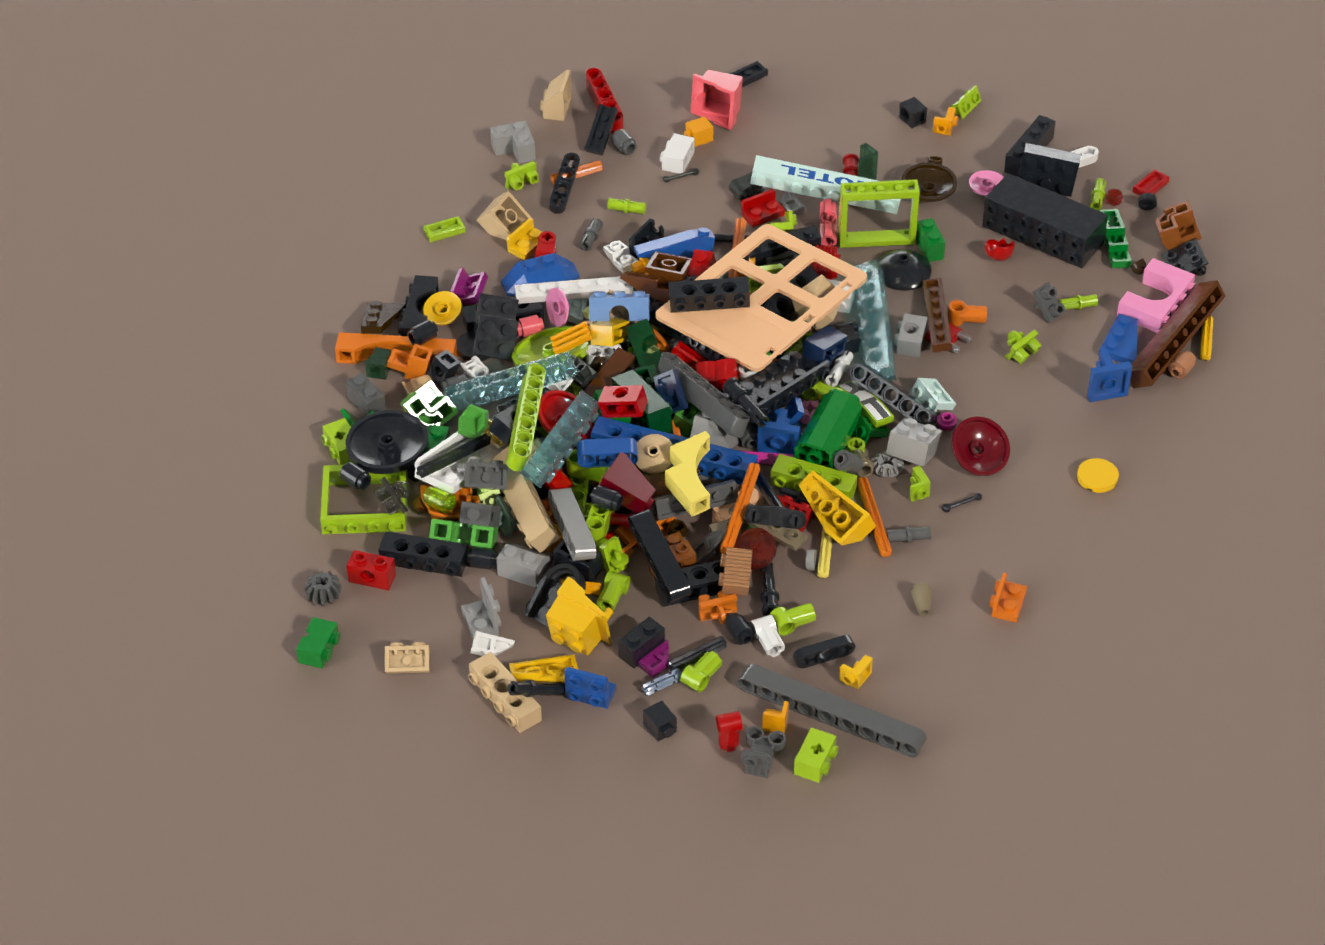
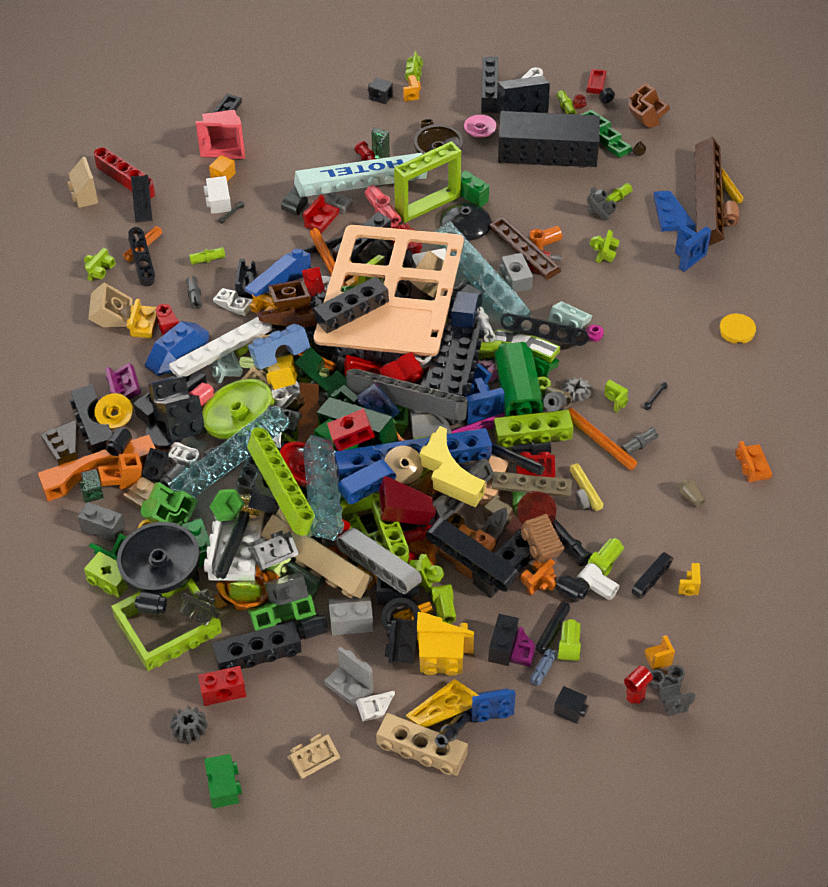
camera: 30 degrees left, 5 degrees up
(444, 229) = (64, 339): lime tile -> none
(514, 138) = (71, 234): light grey brick -> none
(557, 306) = (219, 368): bright pink dish -> none
(570, 336) = (252, 389): light orange tile -> none
(606, 498) = (397, 523): black brick -> none
(624, 141) = (165, 201): dark grey brick -> none
(740, 507) = (505, 482): orange axle -> none
(741, 397) = (446, 383): black pin -> none
(776, 516) = (541, 474): black piece -> none
(790, 222) = (354, 216): lime bracket -> none
(815, 755) = (715, 671): lime brick -> none
(832, 710) = (696, 624): dark grey beam -> none
(836, 512) = (579, 449): yellow wedge -> none
(914, 441) = (589, 361): light grey brick -> none
(987, 439) = (641, 342): dark red dish -> none
(999, 250) = (529, 176): red hair -> none
(1155, 313) = (676, 152): bright pink arch -> none
(1187, 257) = (668, 130): black hinge -> none

